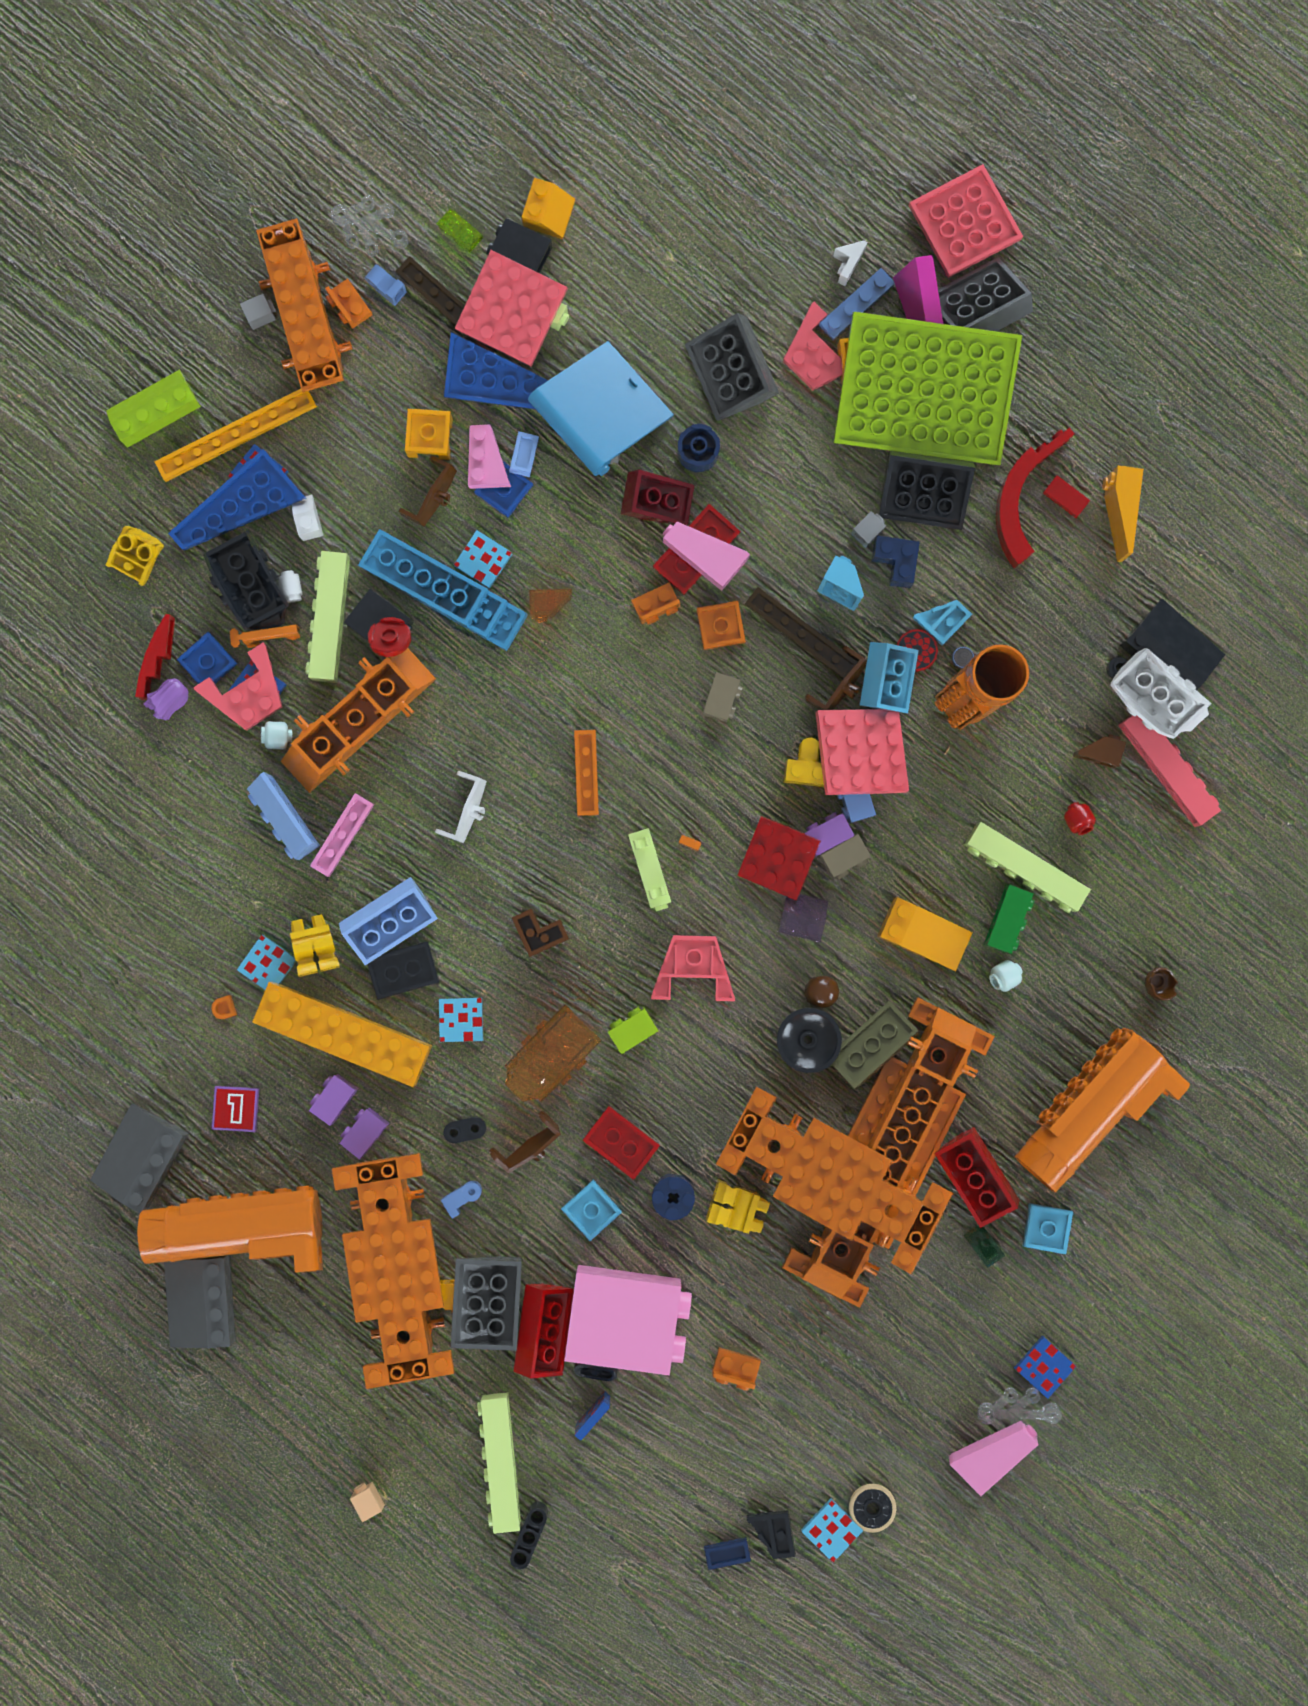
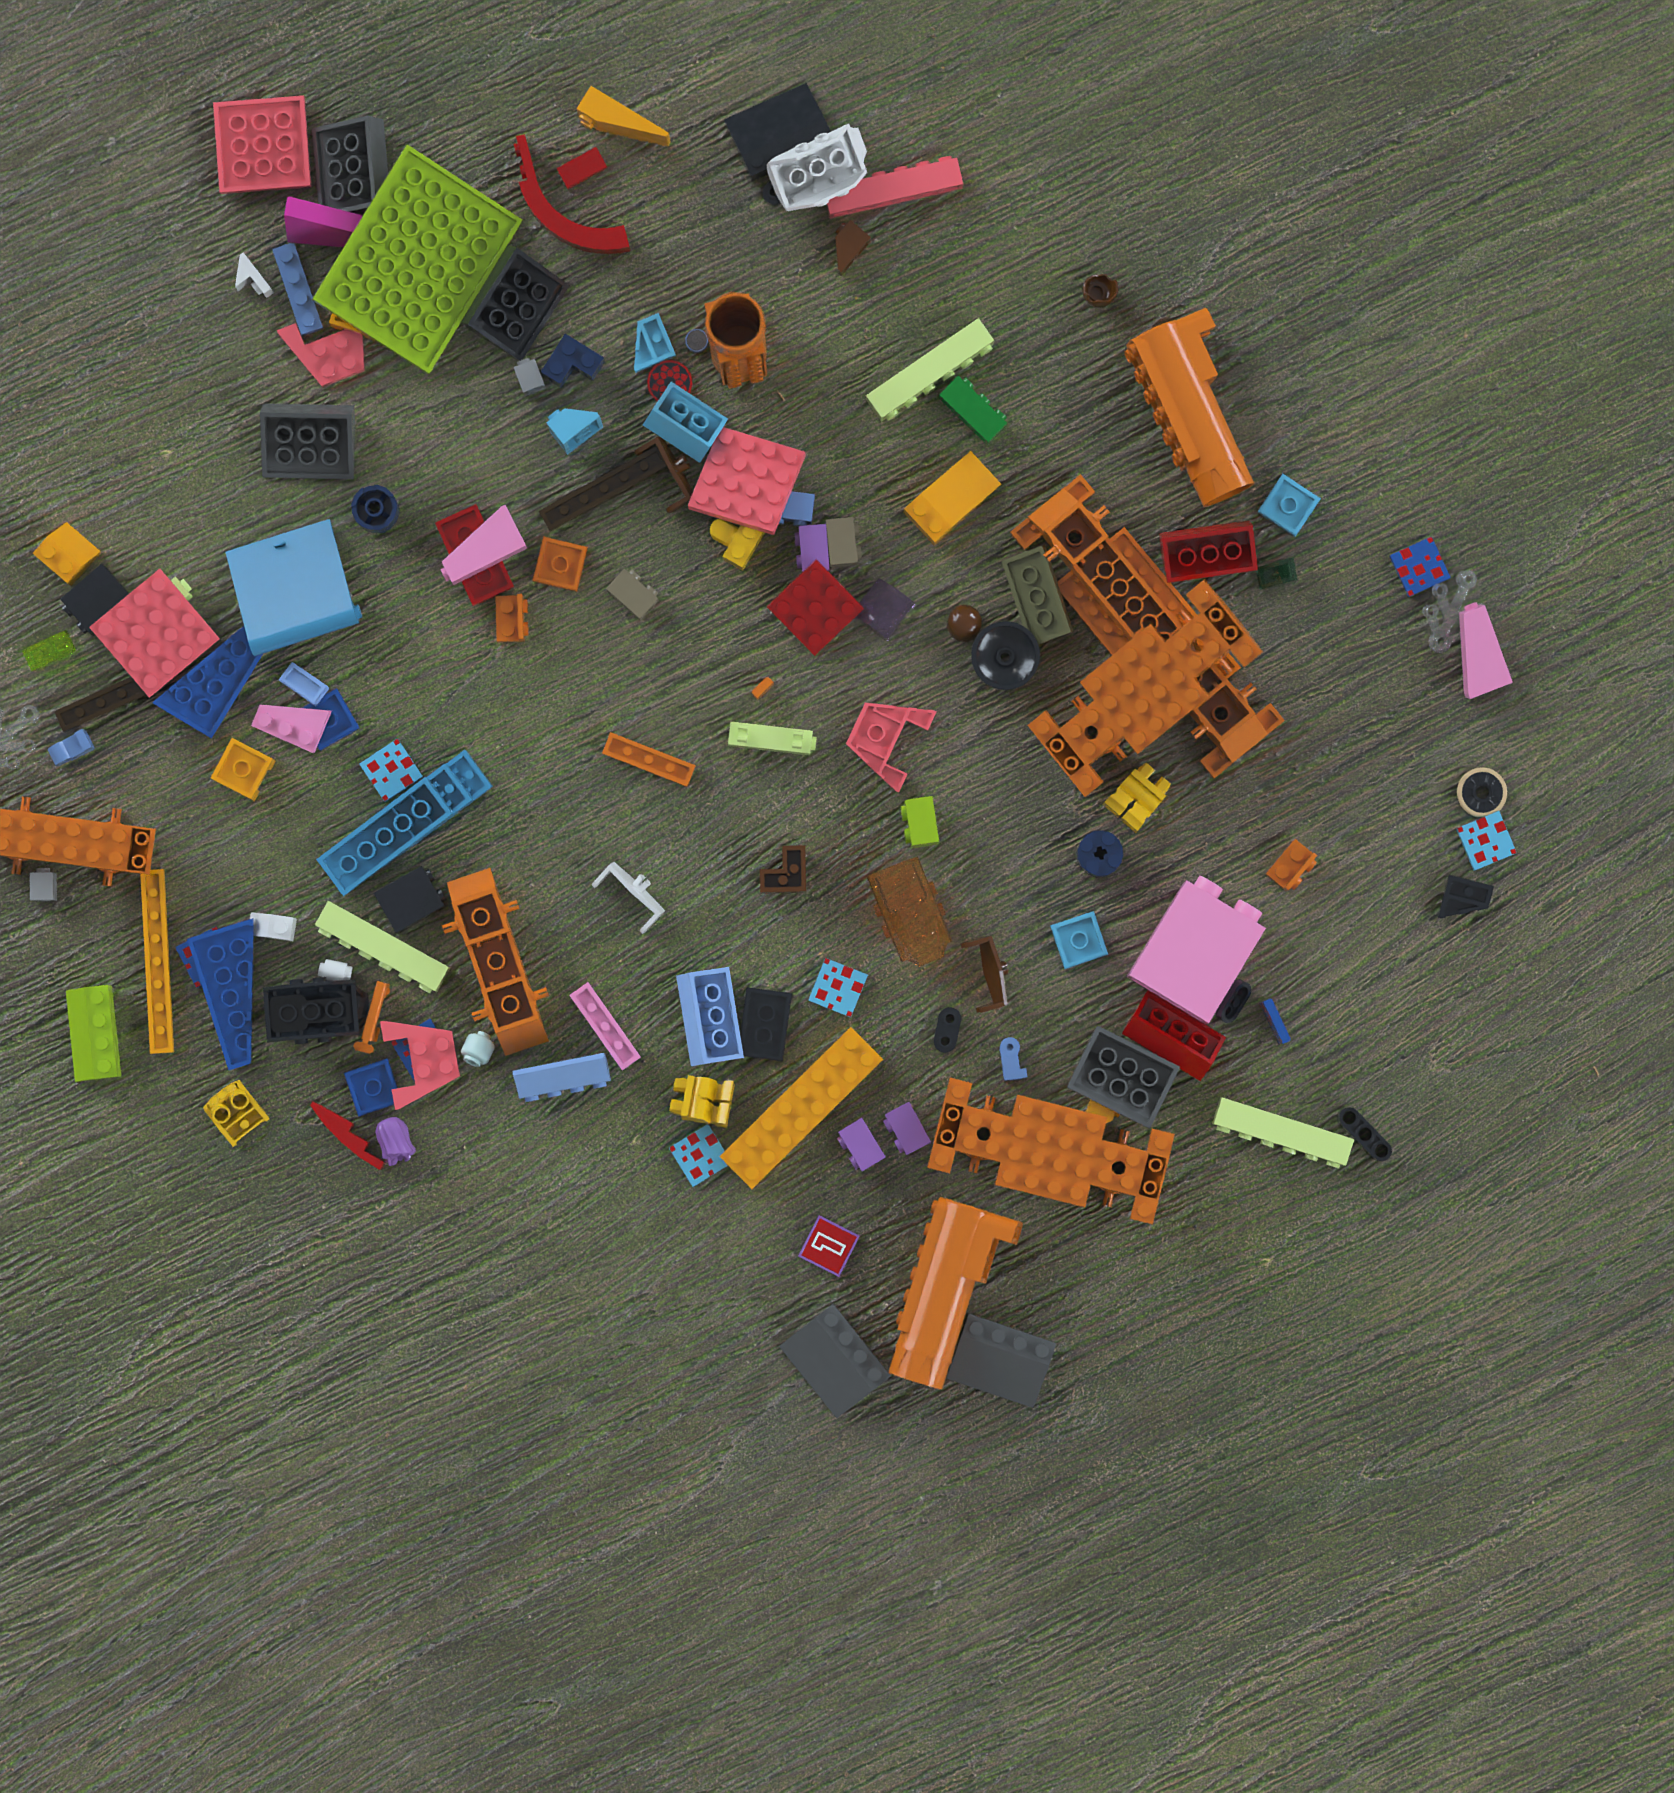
camera: 60 degrees left, 0 degrees up
(224, 1007) = (724, 1215): orange tile -> none
(349, 303) = (73, 792): orange bracket -> none
(367, 1501) = (1263, 1277): light nougat brick -> none
(389, 637) = (432, 892): red tile -> none
(436, 494) = (307, 787): reddish brown piece -> none
(548, 602) = (463, 725): clear orange slope -> none
(621, 1142) = (1025, 882): red plate -> none
(657, 498) = (407, 571): dark red slope -> none
(727, 1553) = (1465, 951): dark blue tile -> none
(1005, 975) = (1026, 437): light aqua head -> none
(1080, 818) = (905, 297): red head -> none

